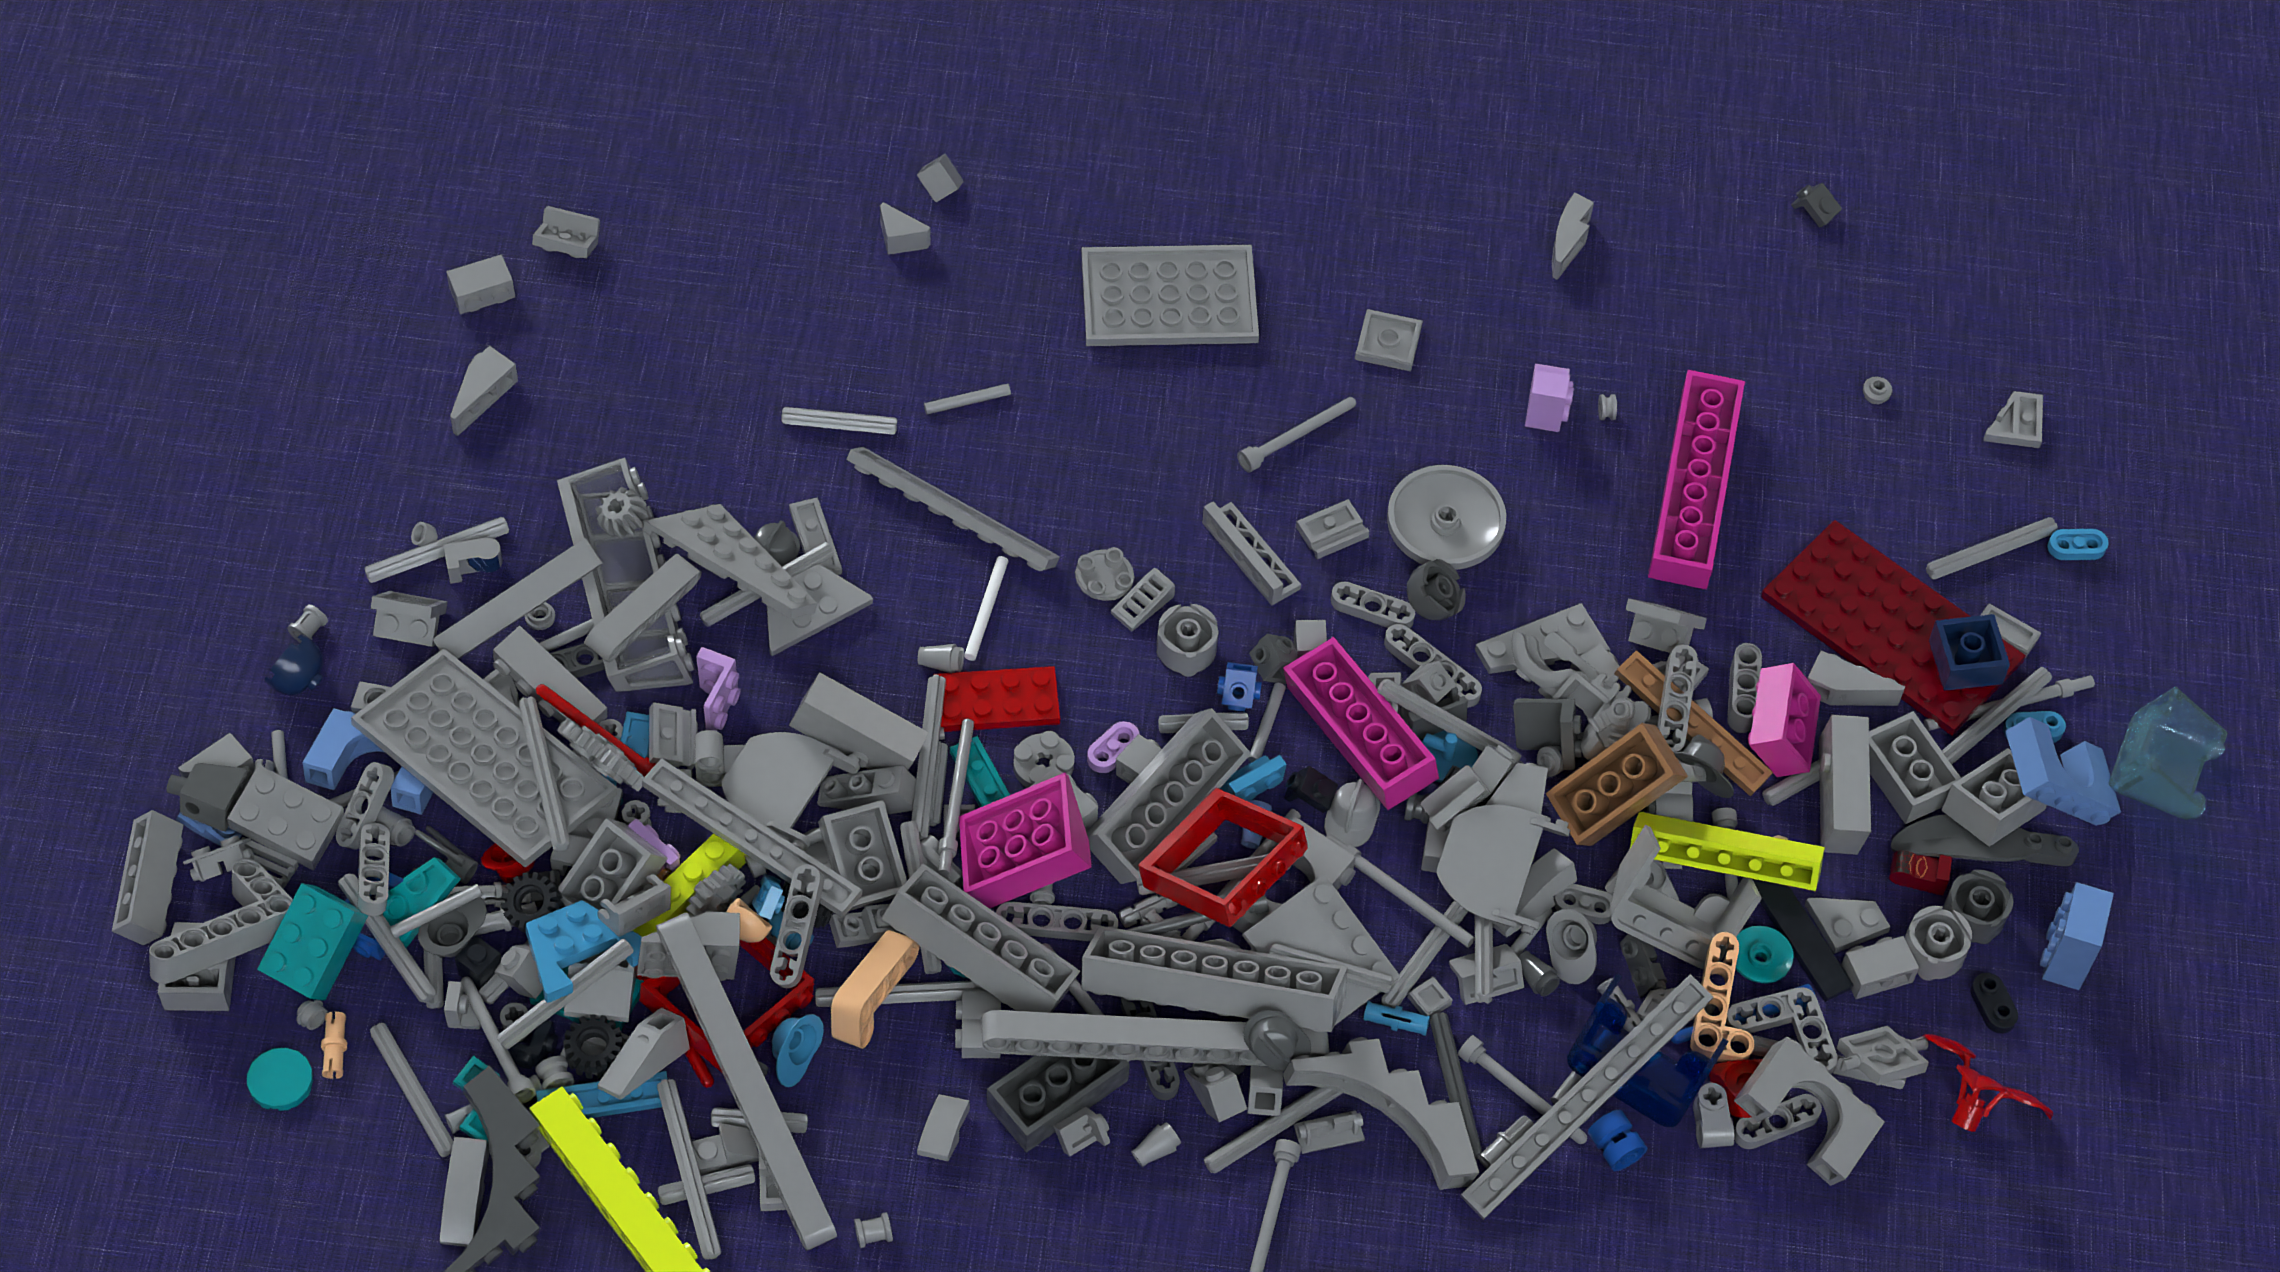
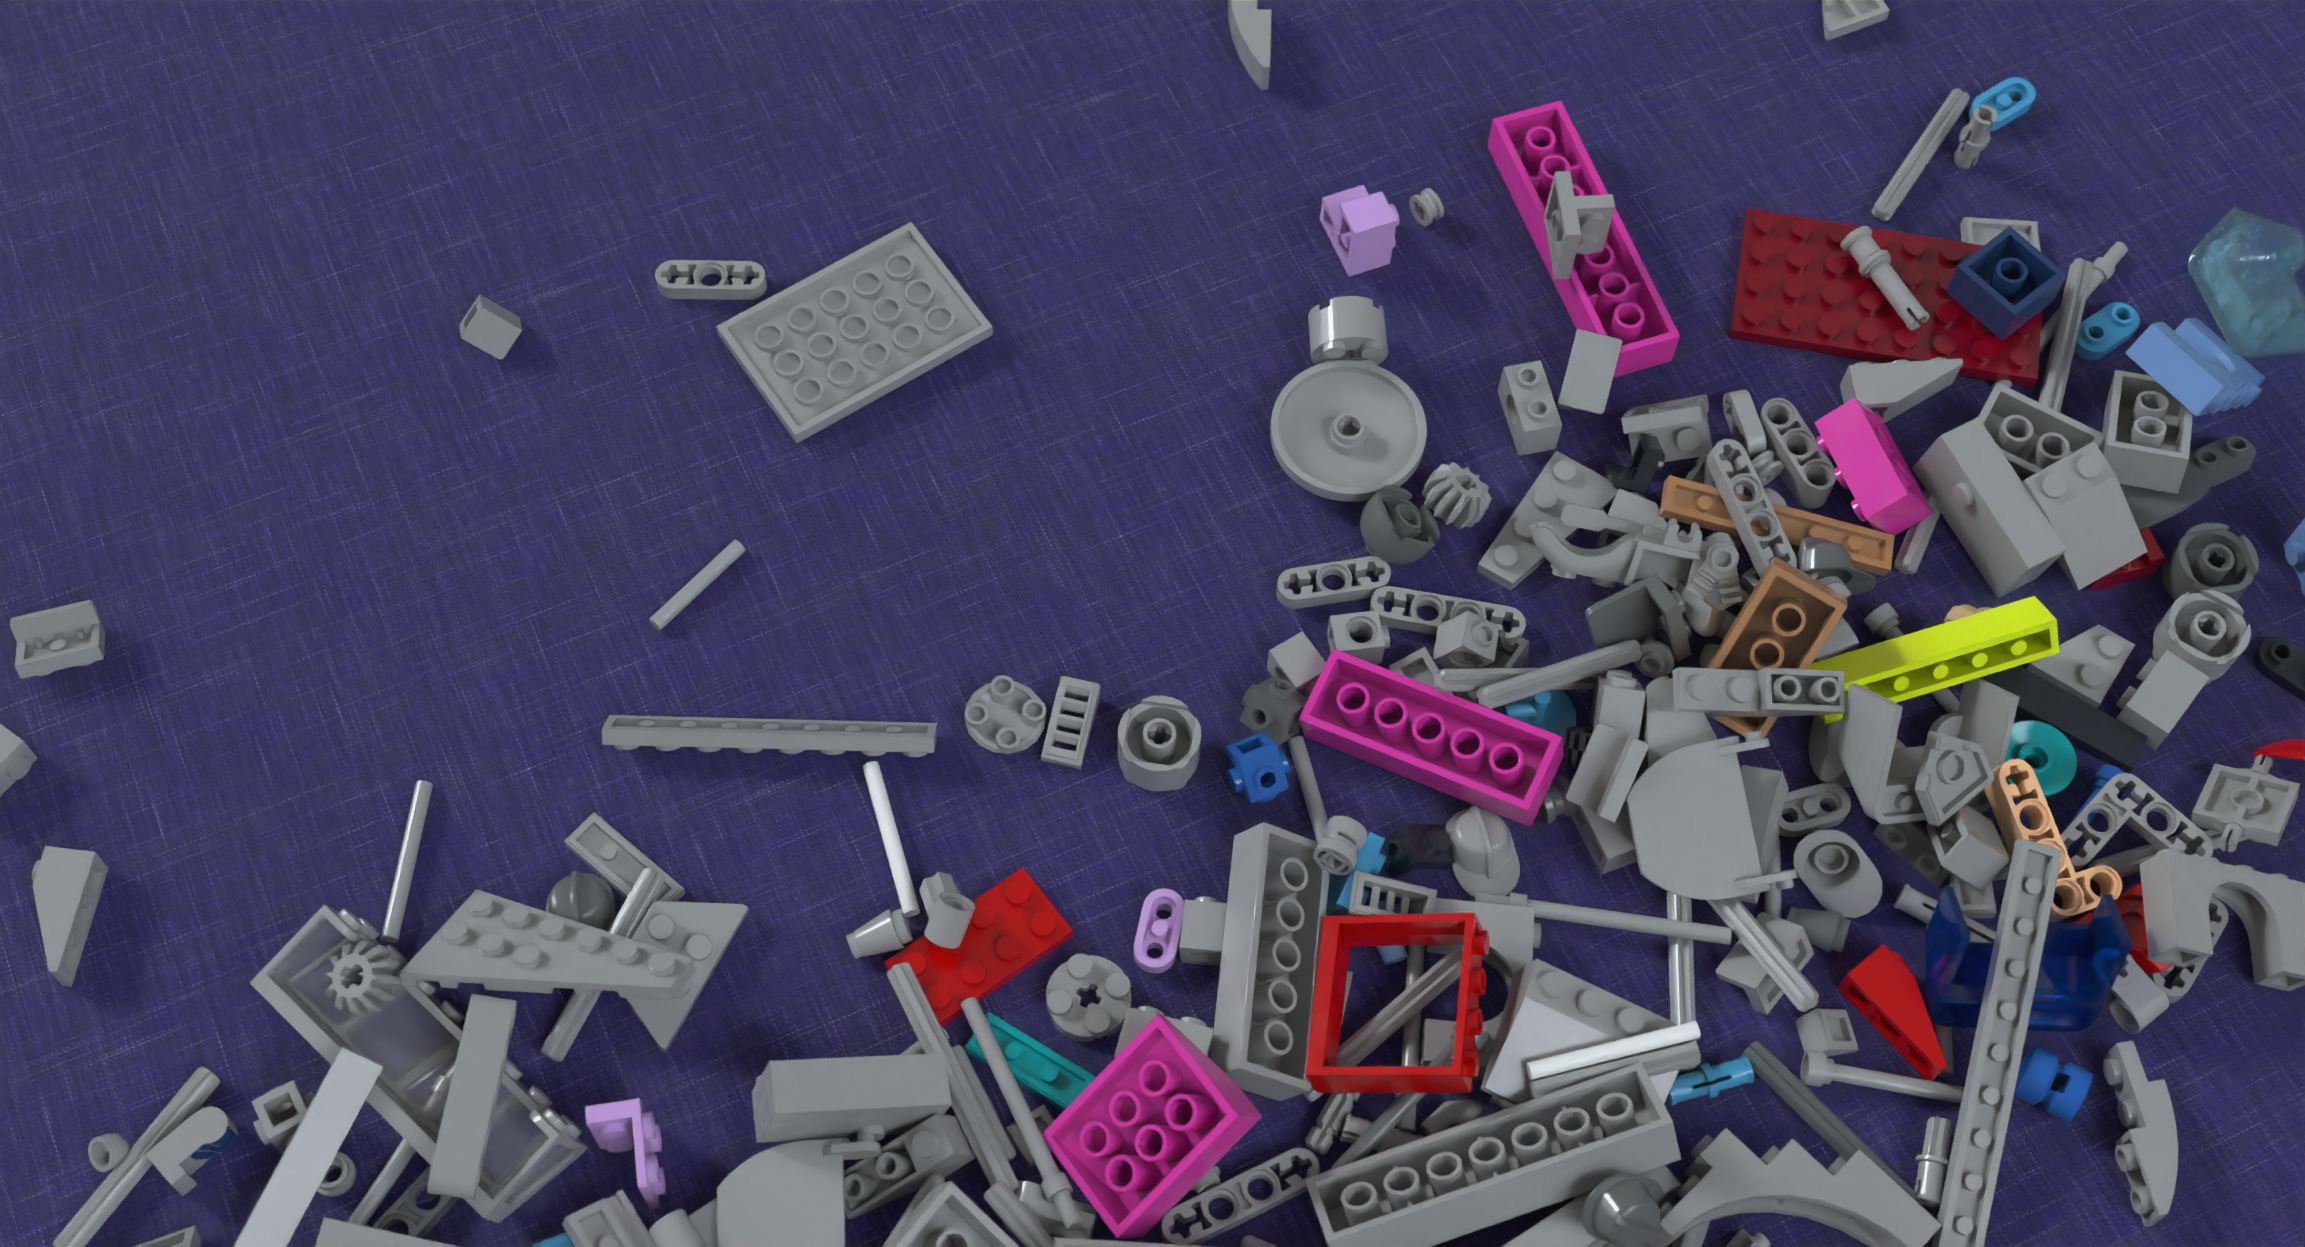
camera: 30 degrees left, 5 degrees up
(529, 560) = (280, 1114): none -> light grey brick
(690, 467) = (406, 861): none -> light grey bar
(839, 420) = (557, 697): light grey axle -> none
(902, 231) = (485, 417): light grey slope -> none
(987, 662) = (946, 909): none -> light grey piece
(1093, 207) = (722, 291): none -> light grey beam
(1174, 723) = (1221, 848): light grey axle -> none
(1249, 557) = (1152, 599): light grey fence -> none
(1251, 458) = (1080, 476): light grey piece -> none
(1253, 751) = (1339, 848): none -> light grey wheel
(1272, 795) = (1422, 897): none -> light grey slope
(1332, 529) = (1227, 514): light grey plate -> none
(1337, 954) = (1613, 1050): none -> white bar
(1360, 635) = (1364, 624): none -> light grey brick
(1388, 340) = (1135, 254): light grey tile -> none
(1430, 998) = (1723, 1031): light grey tile -> none
(1471, 729) = (1559, 674): none -> light grey axle
(1489, 593) = (1456, 495): none -> light grey gear
(1490, 455) = (1348, 331): none -> light grey brick
(1498, 1036) = (1827, 1032): none -> light grey slope
(1549, 1033) = (1894, 1006): none -> red slope
(1581, 566) = (1529, 408): none -> light grey brick
(1583, 801) = (1758, 693): none -> light grey slope
(1619, 644) = (1645, 462): none -> black bracket
(1633, 562) = (1589, 372): none -> light grey panel
(1658, 1206) = (2150, 1145): none -> light grey slope
(1664, 969) = (1970, 847): none -> light grey brick
(1676, 917) = (1950, 775): none -> light grey plate
(1683, 460) = (1574, 223): none -> light grey bracket
(1715, 686) = (1766, 467): none -> light grey bush
(1724, 652) = (1744, 422): none -> light grey beam
(1874, 395) = (1684, 41): light grey plate -> none
(1890, 597) = (1876, 265): none -> light grey pin
(1903, 820) = (2088, 515): none -> light grey slope
(2031, 552) = (1974, 136): none -> light grey pin

